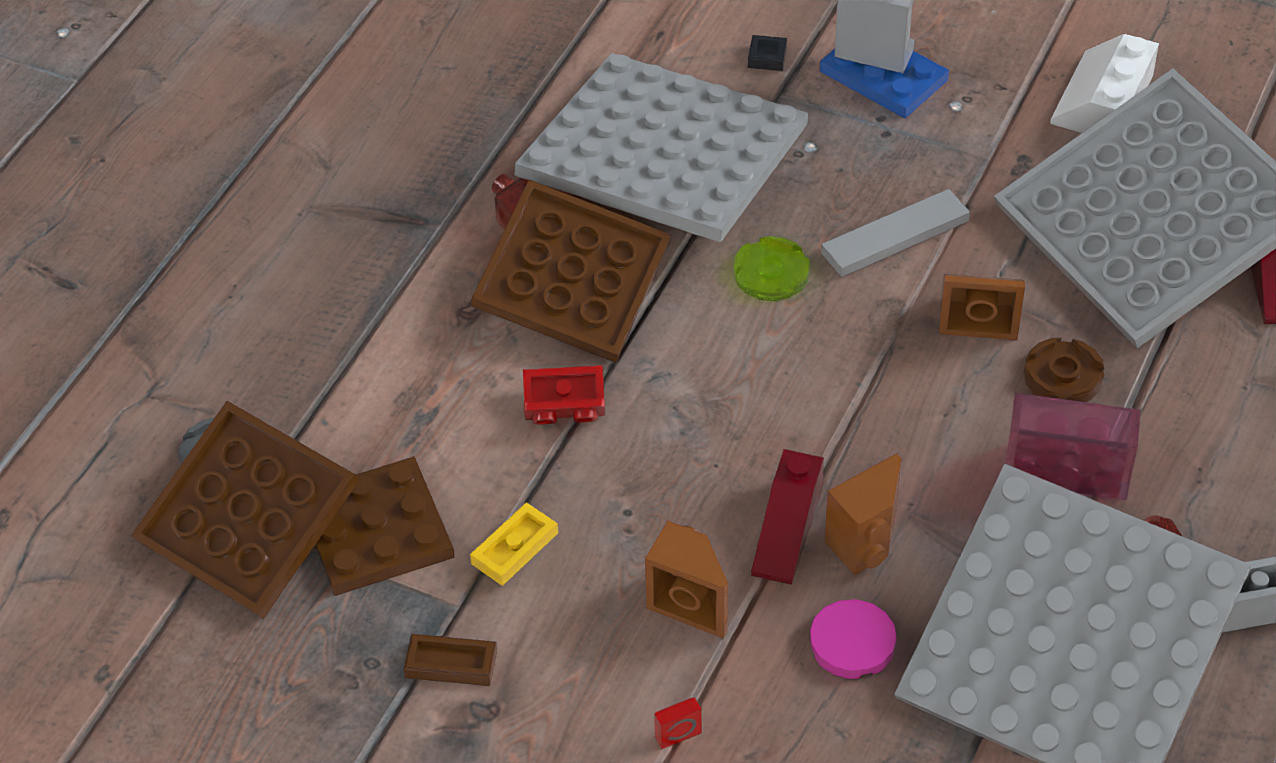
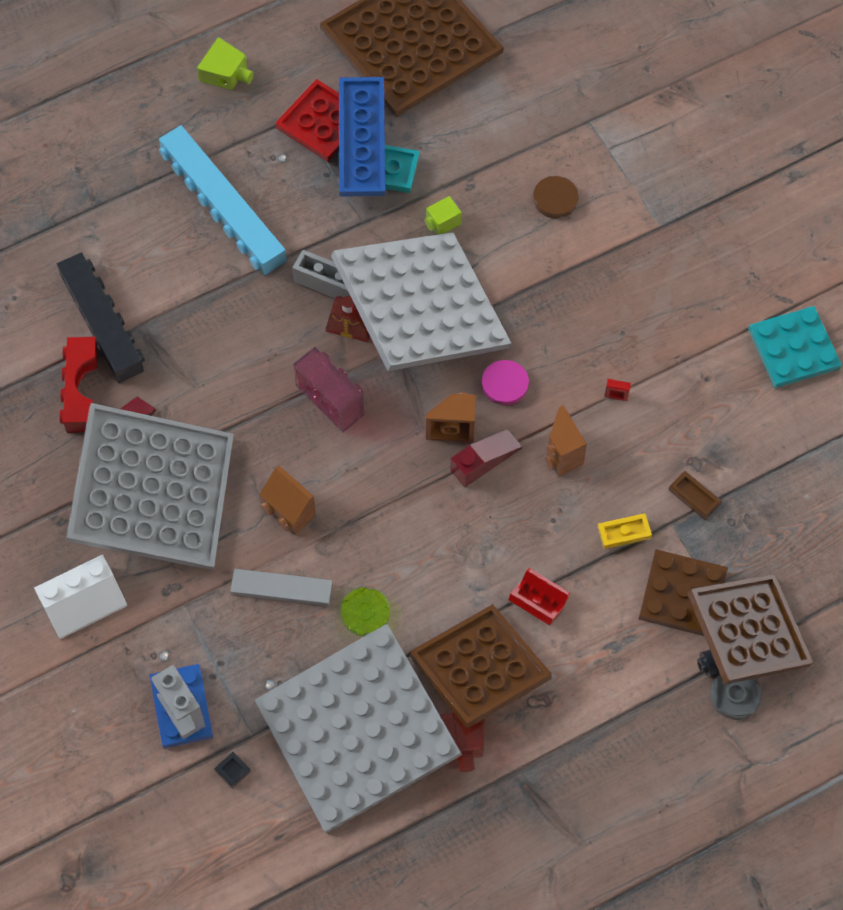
camera: 145 degrees left, 15 degrees up
(1064, 370) = (280, 447): reddish brown tile -> none

